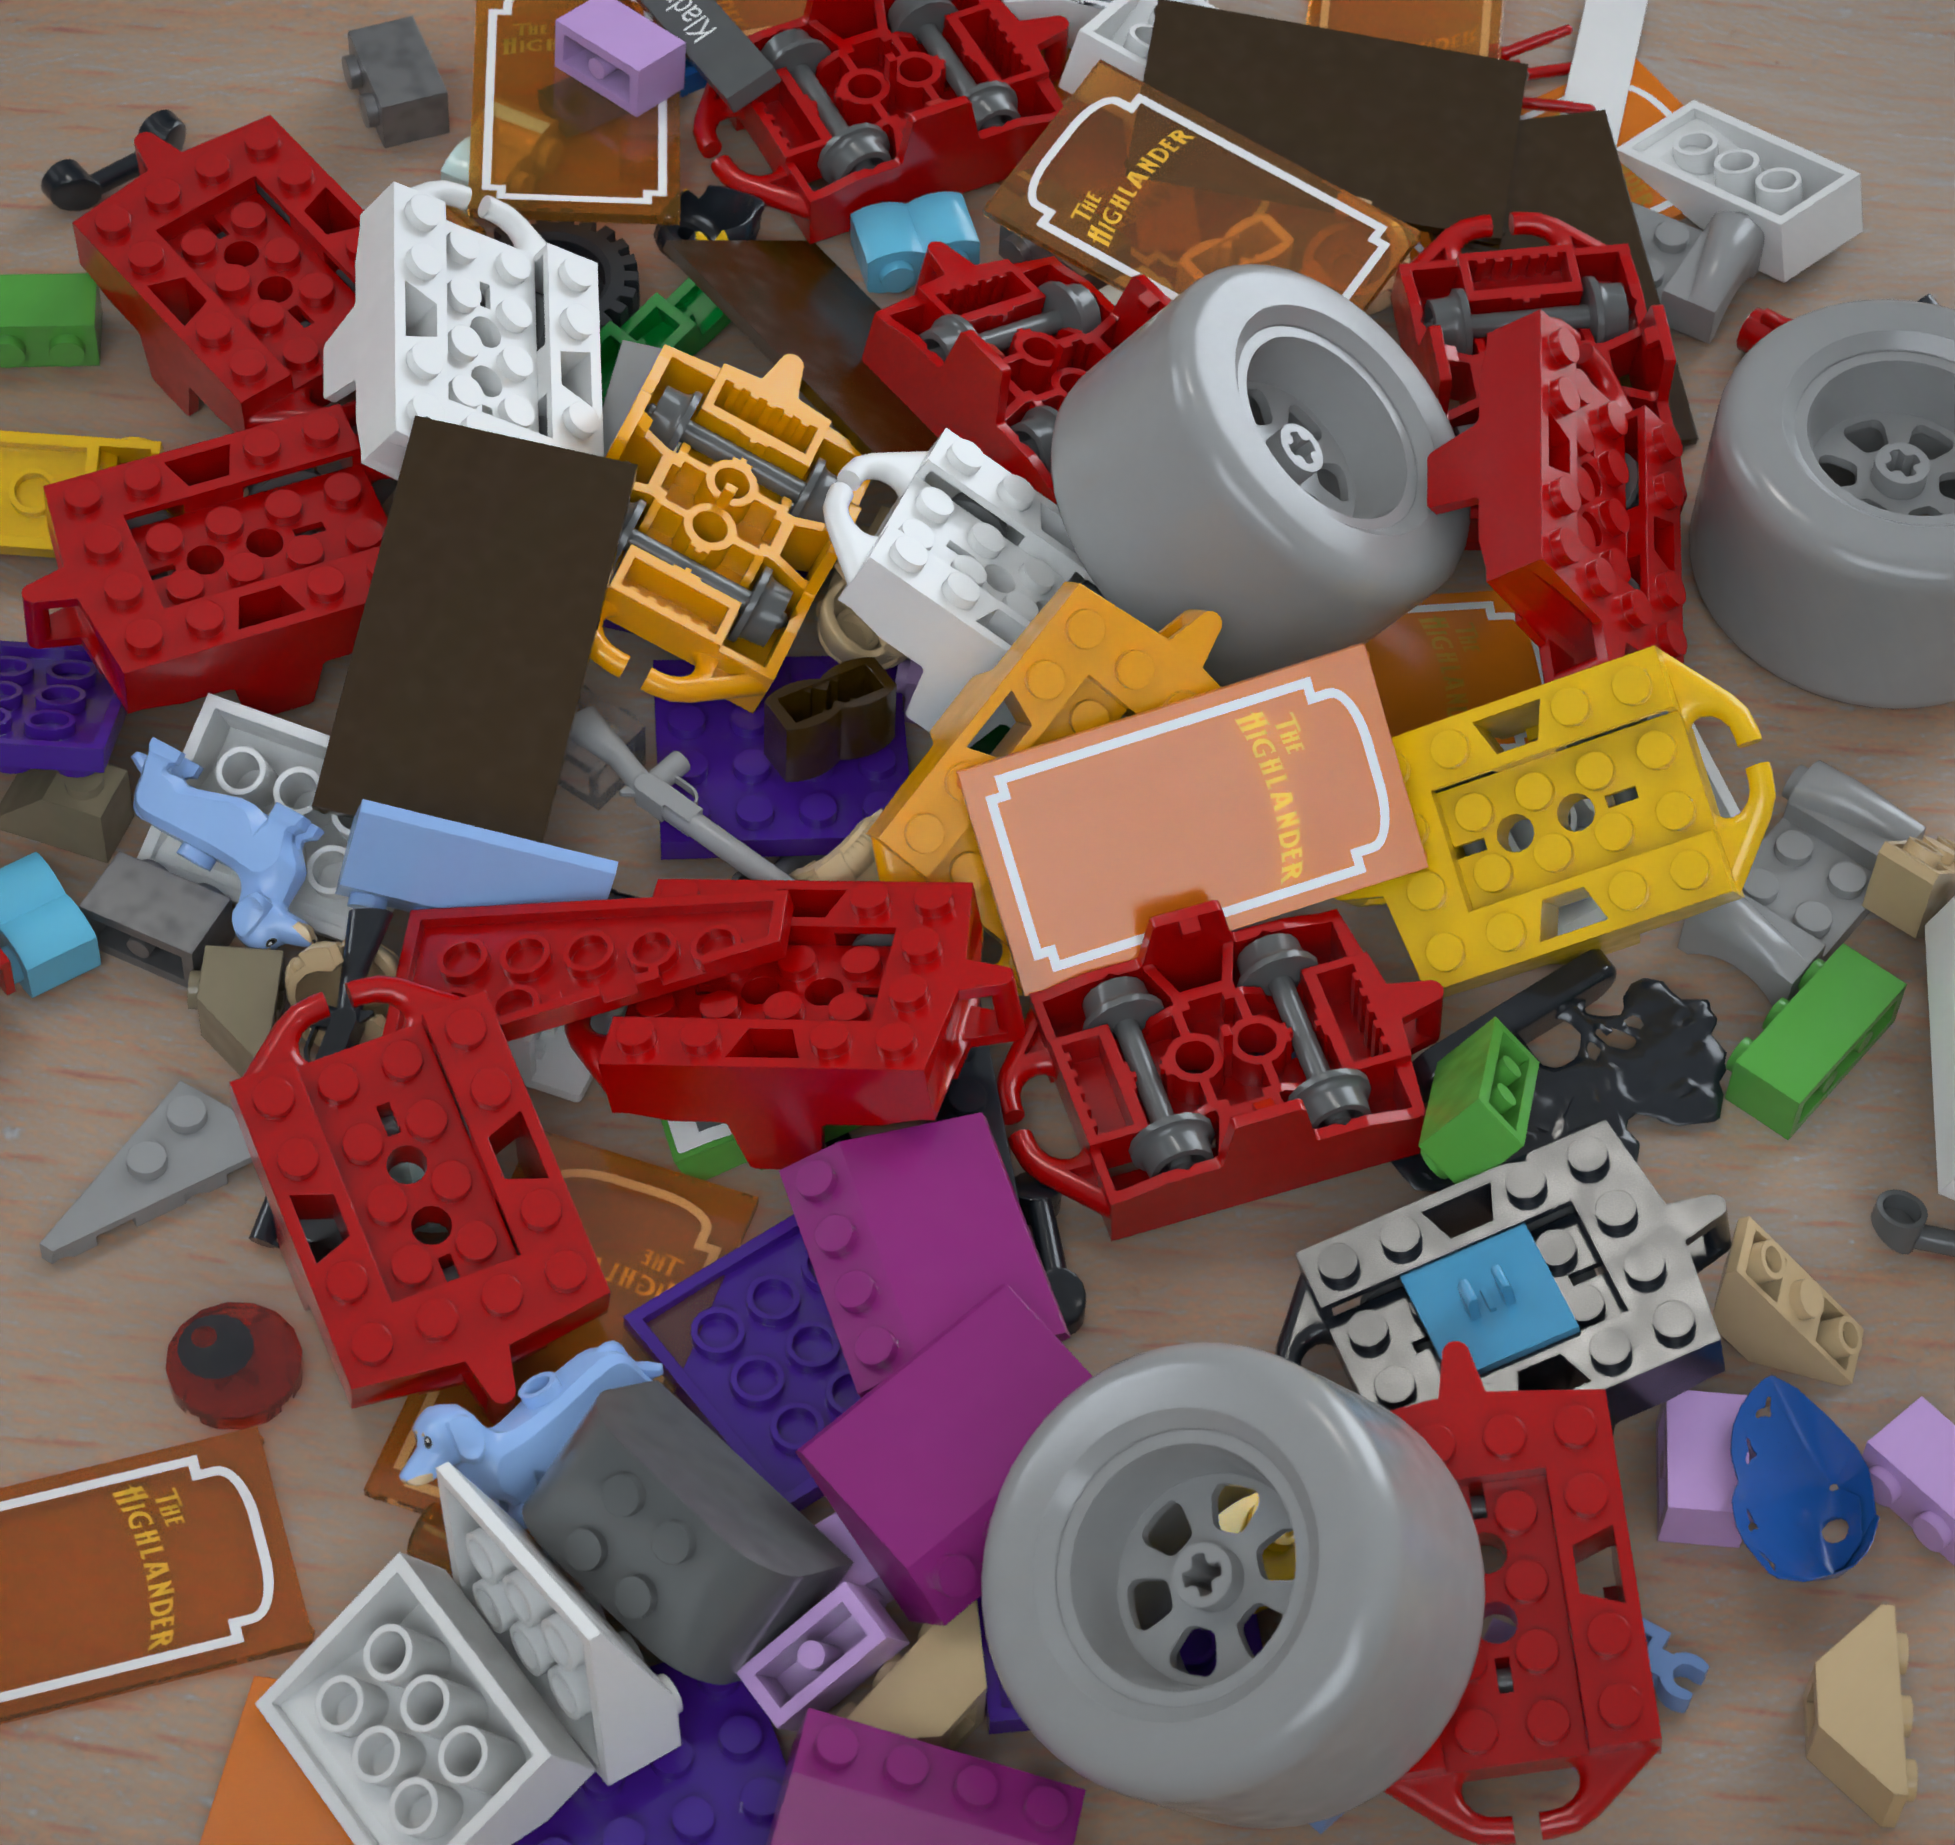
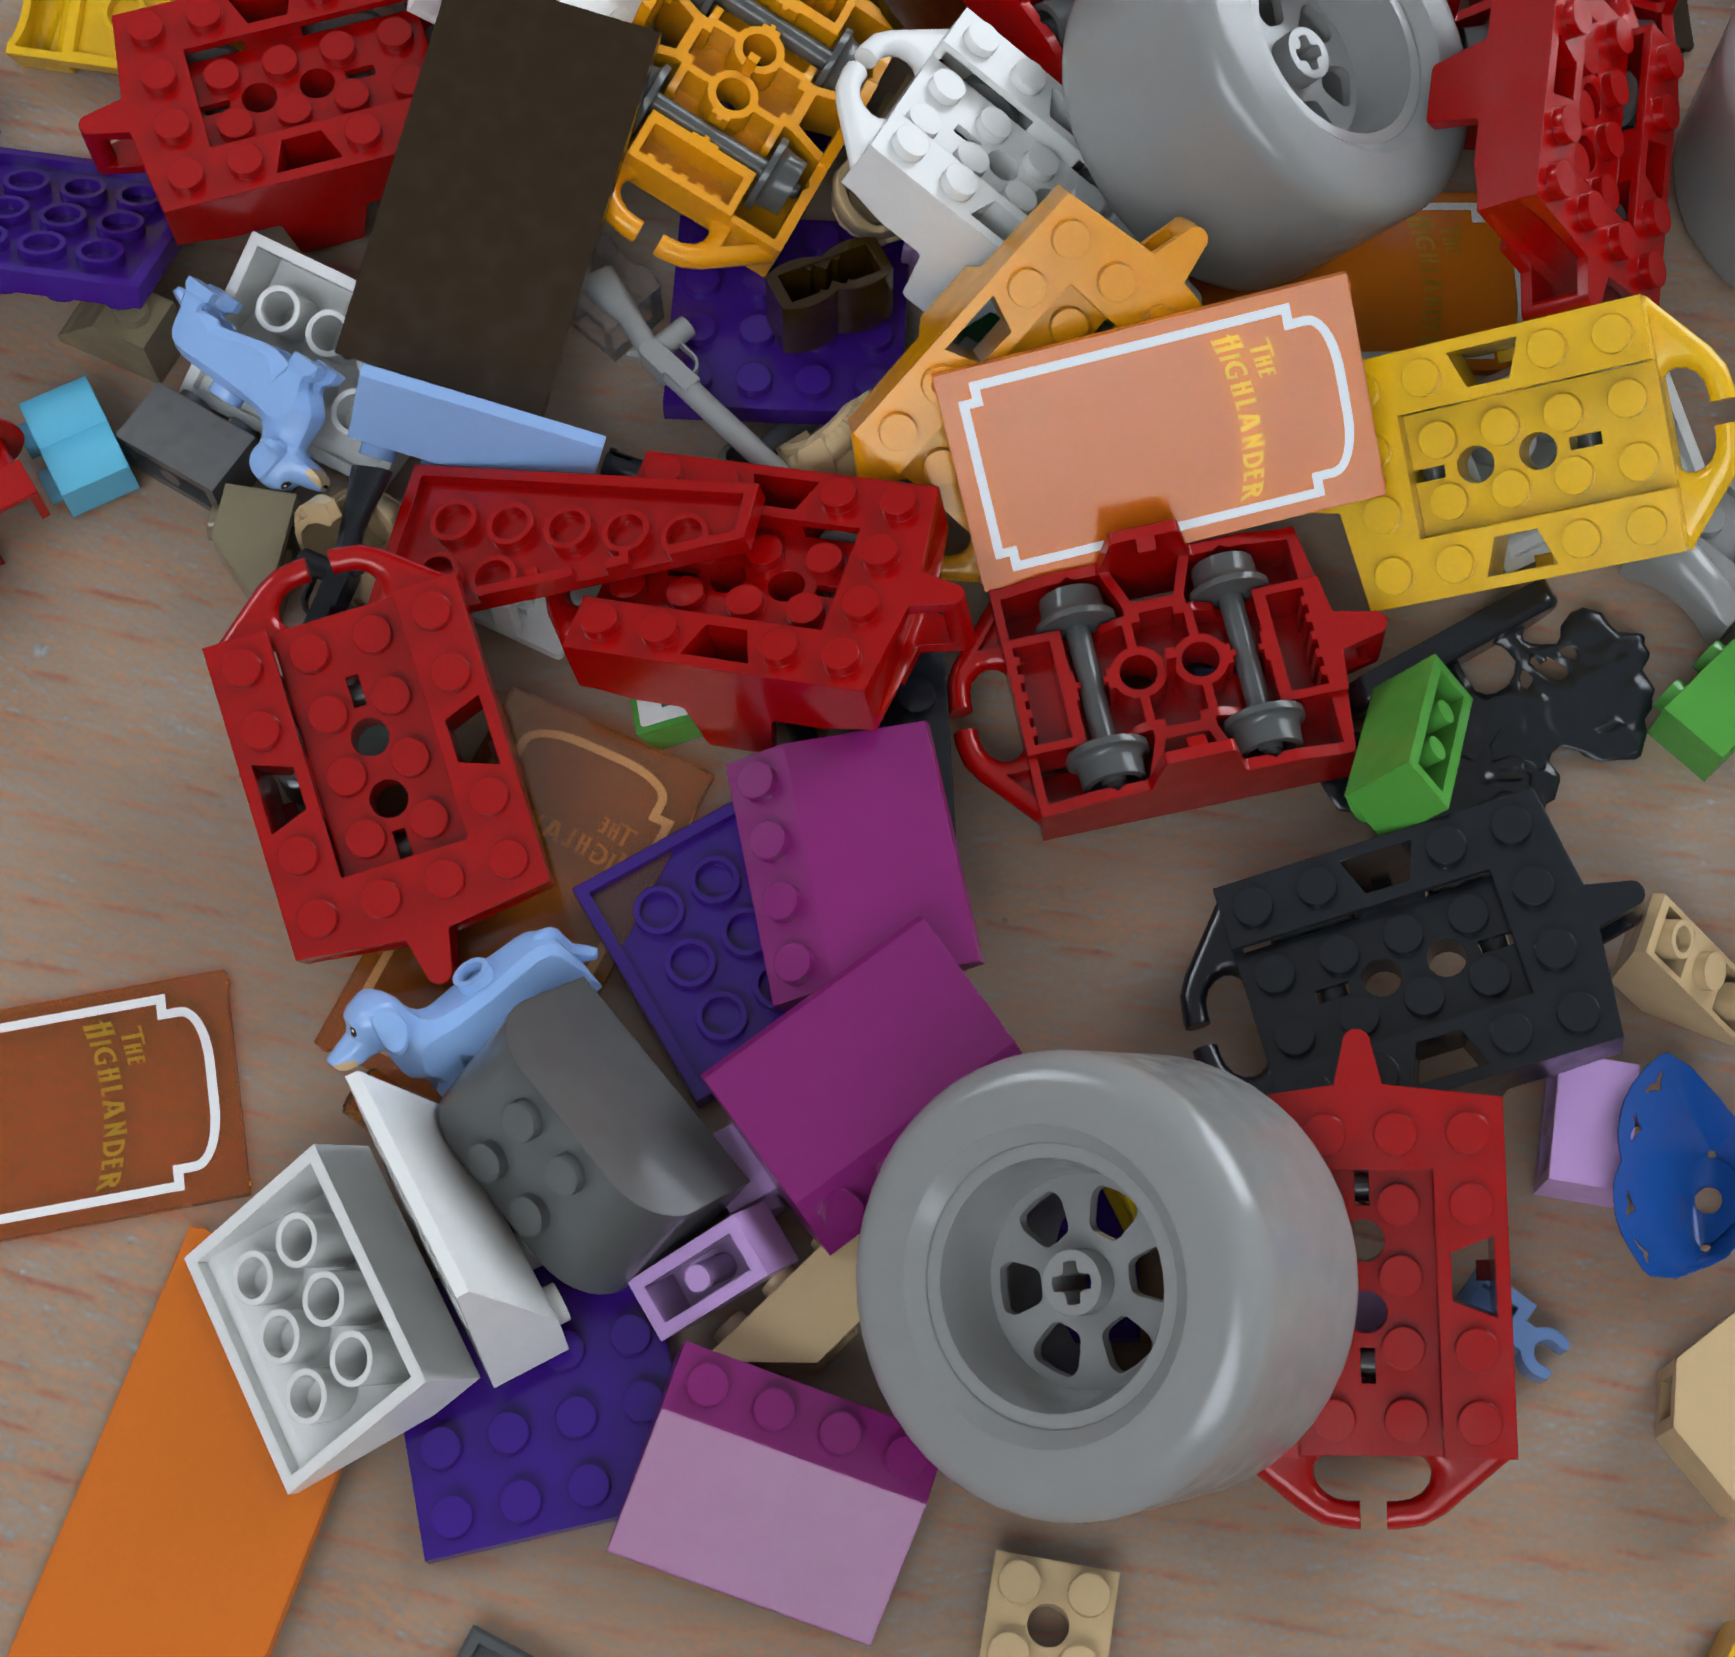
camera: 10 degrees right, 15 degrees up
(173, 1155) = (152, 709): light grey wing -> none
(234, 1365) = (210, 905): clear red tile -> none
(1040, 1208) = (986, 890): black bar -> none
(1492, 1300) = (1397, 966): dark azure piece -> none

